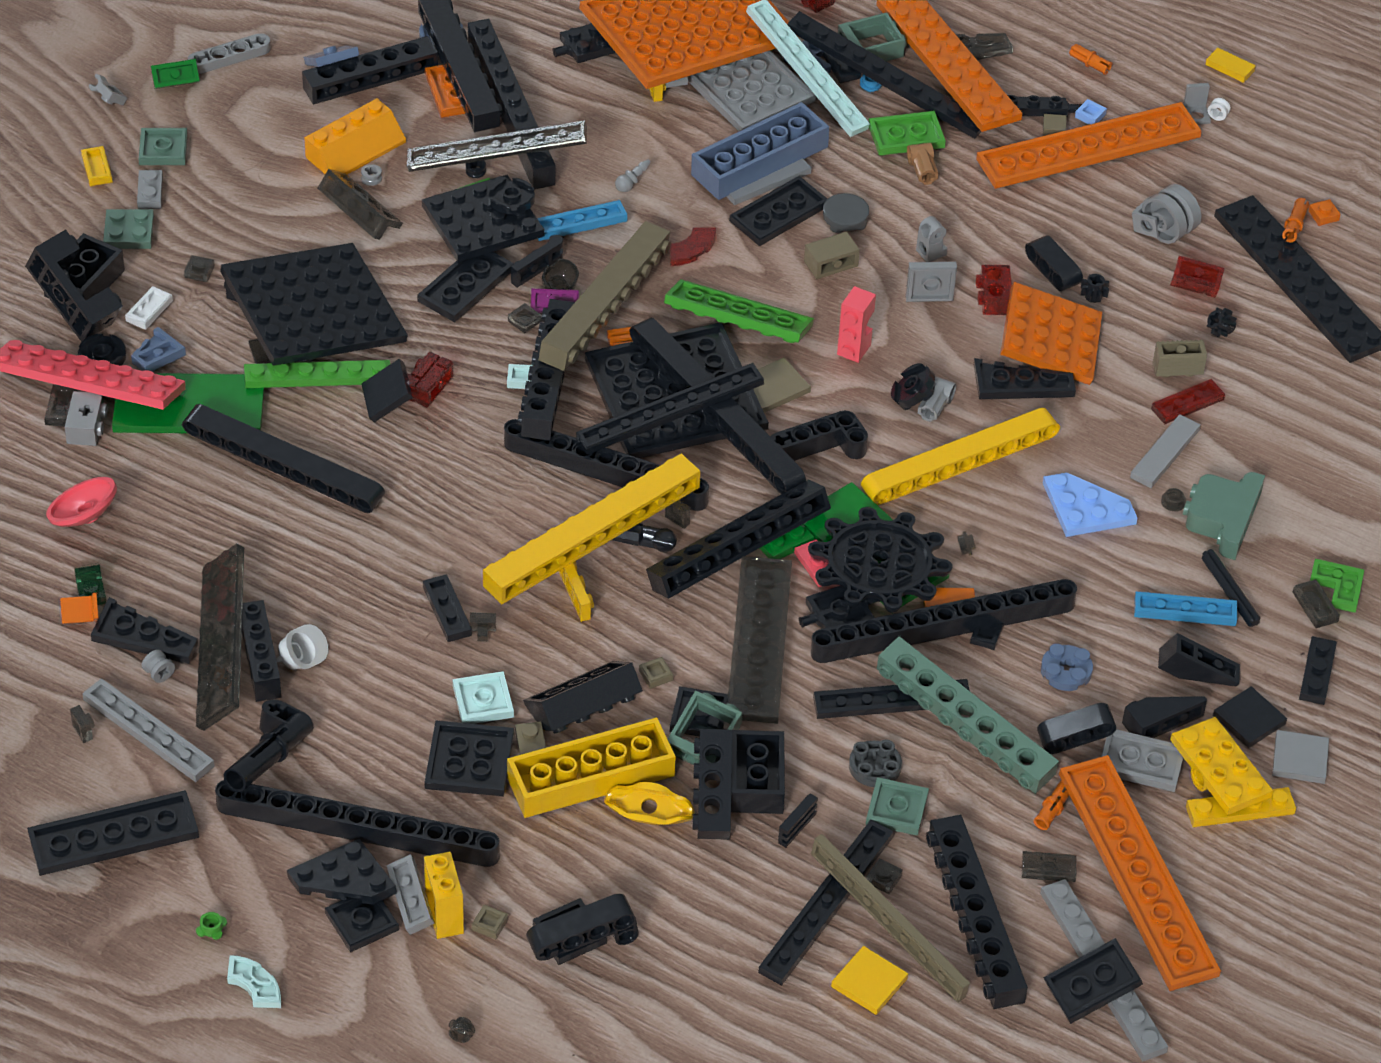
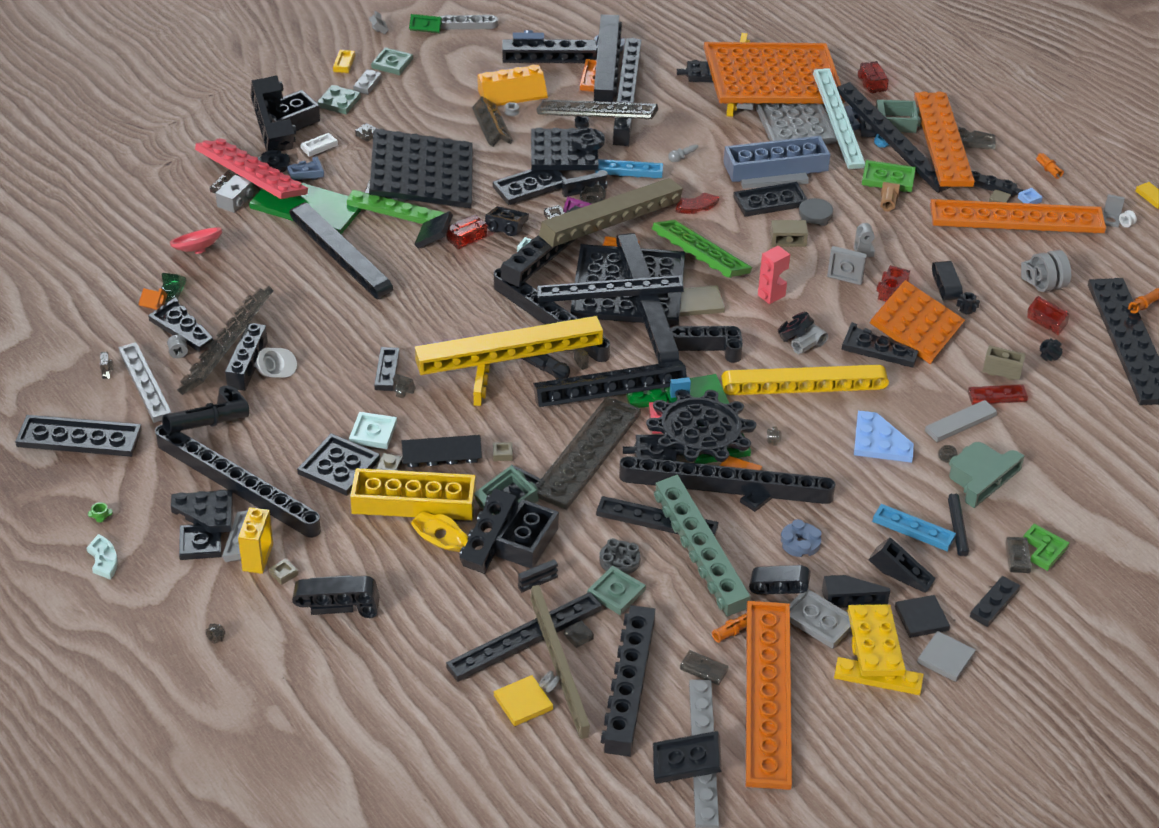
camera: 25 degrees right, 5 degrees down
(469, 347) = (505, 220): none -> black plate
(823, 513) = (677, 384): none -> dark azure tile
(889, 947) = (549, 681): none -> light grey bush

